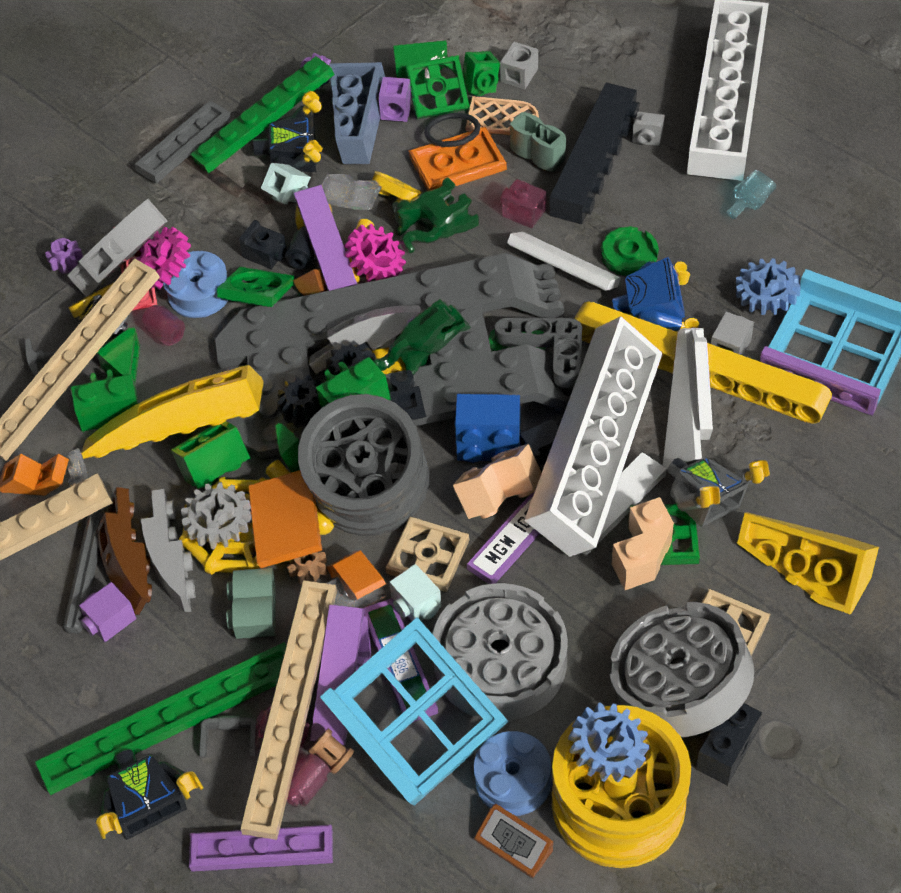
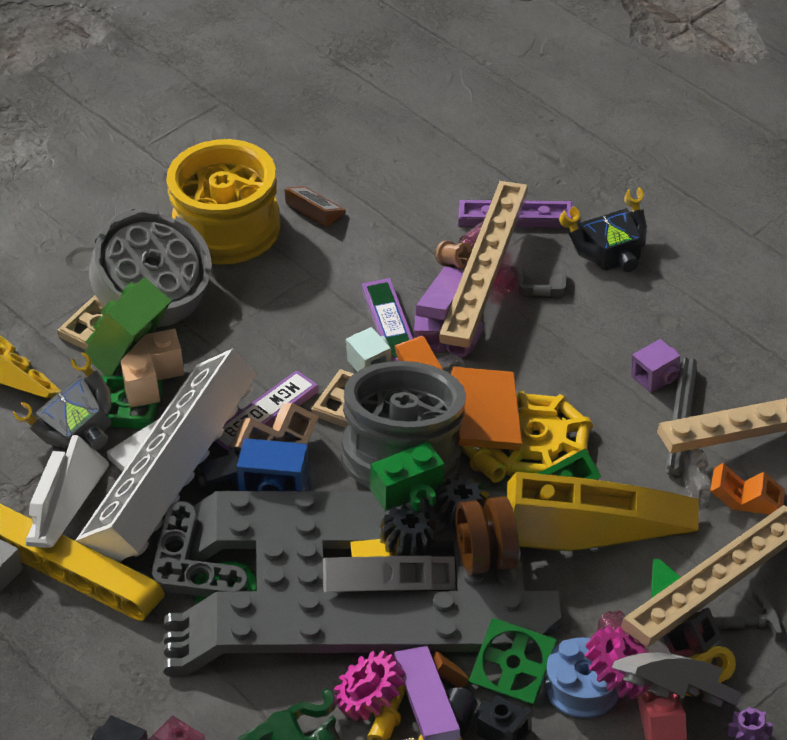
camera: 175 degrees left, 10 degrees down
(103, 399) = (677, 544): green brick -> none
(121, 555) = (644, 407): reddish brown slope -> none
(162, 720) = (592, 291): green plate -> none
(167, 552) = (604, 408): light grey slope -> none
(216, 515) = (552, 415): light grey gear -> none
(252, 604) = (521, 356): sand green brick -> none
(277, 350) = (487, 535): none -> reddish brown wheel
(288, 447) = (475, 459): green slope -> none
(378, 743) = (406, 238): medium azure window -> none
(408, 396) = (353, 495): black plate -> none
(424, 336) = (322, 523): dark green animal -> none
(513, 772) = (306, 235): medium blue wheel -> none
(523, 674) = (302, 334): light grey brick -> none
(564, 261) = (150, 672): white tile -> none
(625, 750) = (227, 176): medium blue gear -> none
(628, 250) = (69, 689): green tile -> none
(656, 295) = (58, 614): blue torso -> none
(678, 559) = (125, 324): none -> bright green brick

